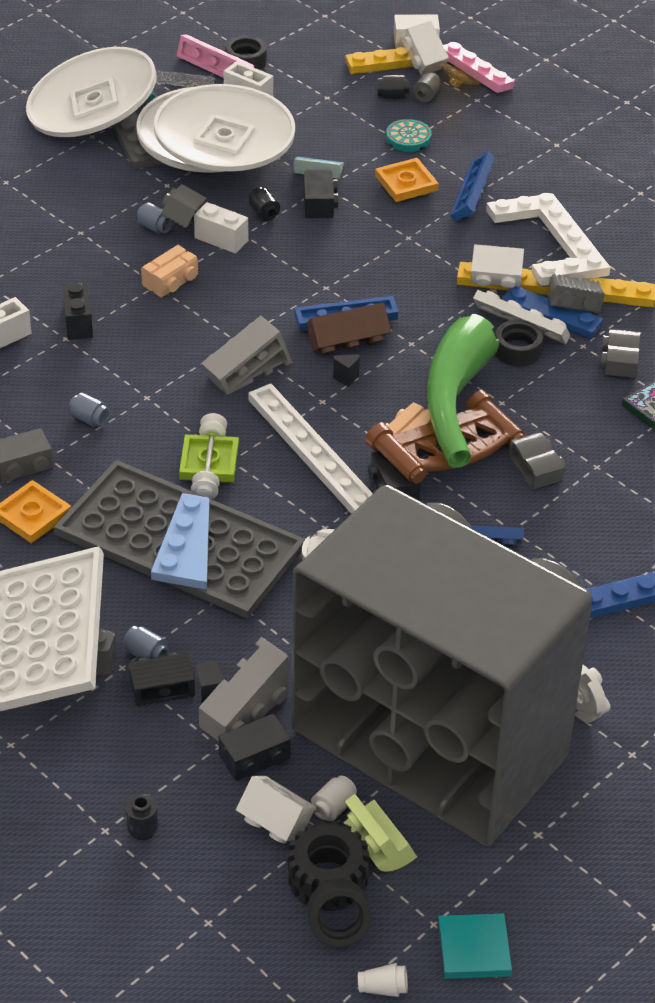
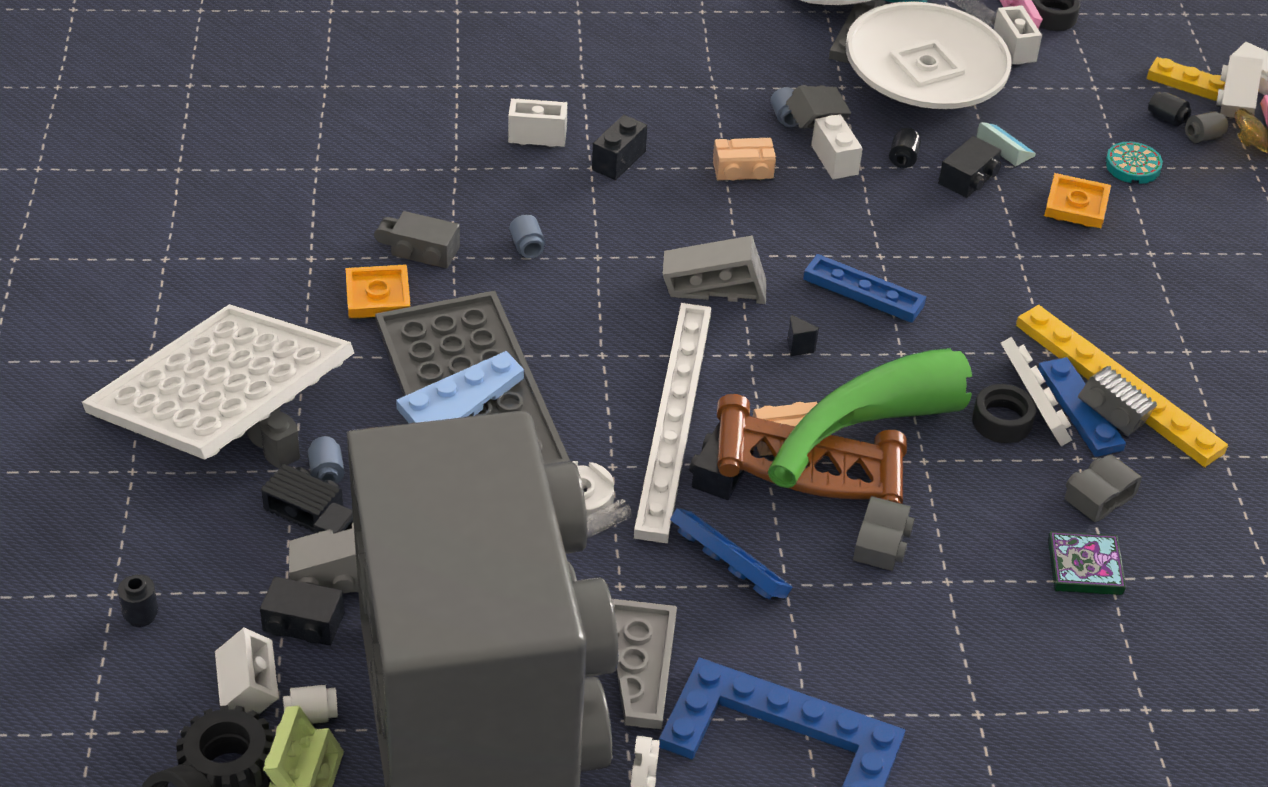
camera: 40 degrees right, 0 degrees up
(209, 456) = (579, 338): lime plate -> none
(348, 328) = (843, 300): reddish brown brick -> none
(472, 187) = (1130, 247): blue plate -> none
(497, 266) = (1059, 326): white brick -> none
(584, 258) = (1176, 370): white plate -> none

